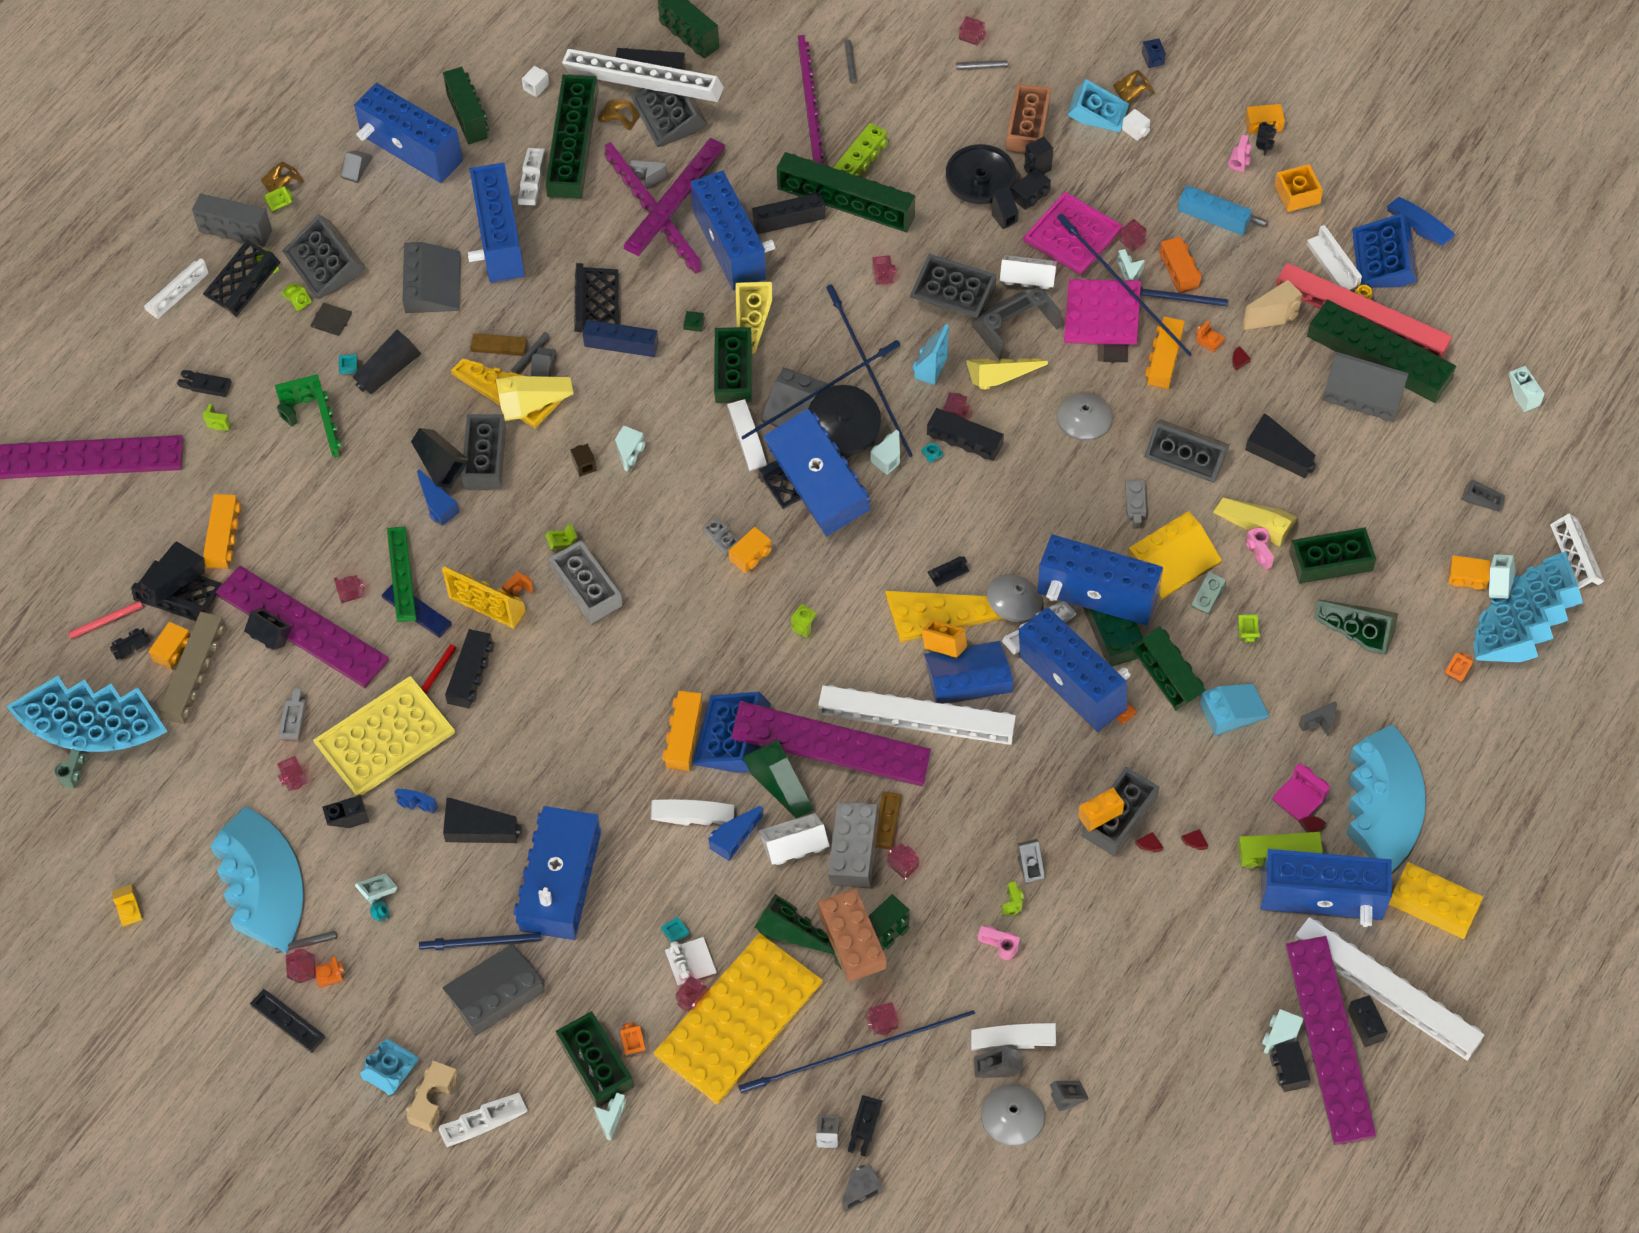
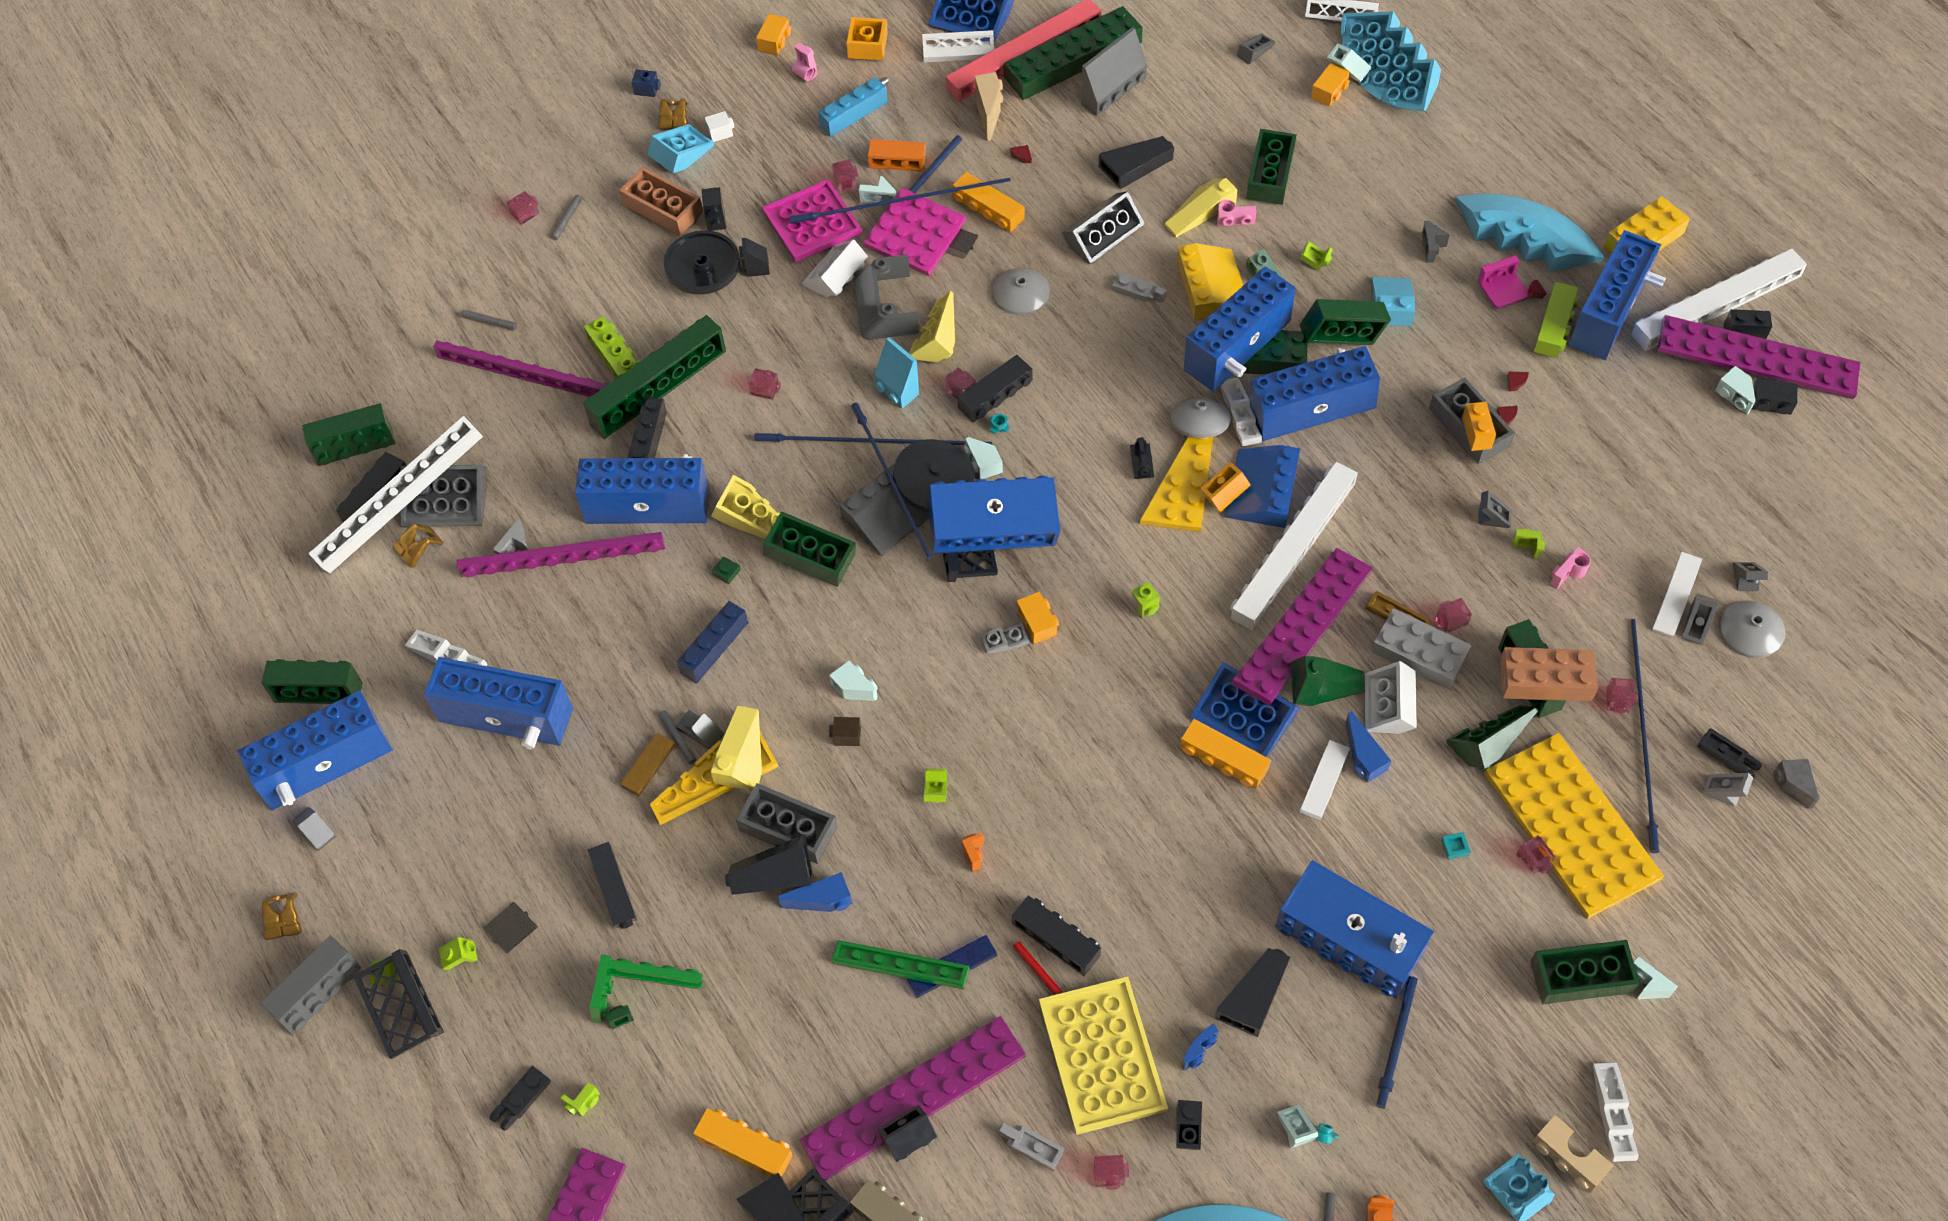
camera: 65 degrees left, 0 degrees up
(177, 288) = (364, 1087): white fence -> none
(278, 198) = (308, 925): lime bracket -> none
(323, 257) = (423, 906): dark grey slope -> none
(348, 364) = (586, 927): teal plate -> none
(349, 588) = (891, 1027): clear pink brick -> none
(430, 278) = (520, 803): dark grey slope -> none
(483, 598) = (978, 886): yellow slope -> none
(494, 989) = (1461, 1046): dark grey slope -> none
(535, 81) = (322, 606): white brick -> none
(572, 136) = (423, 594): dark green brick -> none
(580, 295) = (637, 661): black fence -> none
(585, 582) = (1005, 780): light grey brick -> none
(632, 1038) = (1566, 929): orange bracket -> none
(673, 197) = (567, 527): magenta plate -> none
(690, 959) = (1494, 845): white hinge -> none
(751, 445) = (896, 569): white slope -> none
(954, 286) = (823, 330): dark grey slope -> none
(1031, 189) = (741, 226): black brick -> none
(1208, 337) = (988, 166): orange bracket -> none
(1265, 136) = (798, 34): black hinge -> none
(1364, 625) = (1350, 174): dark green wedge -> none
(1366, 290) = (1001, 40): yellow plate -> none
(1459, 666) = (1421, 127): orange bracket -> none

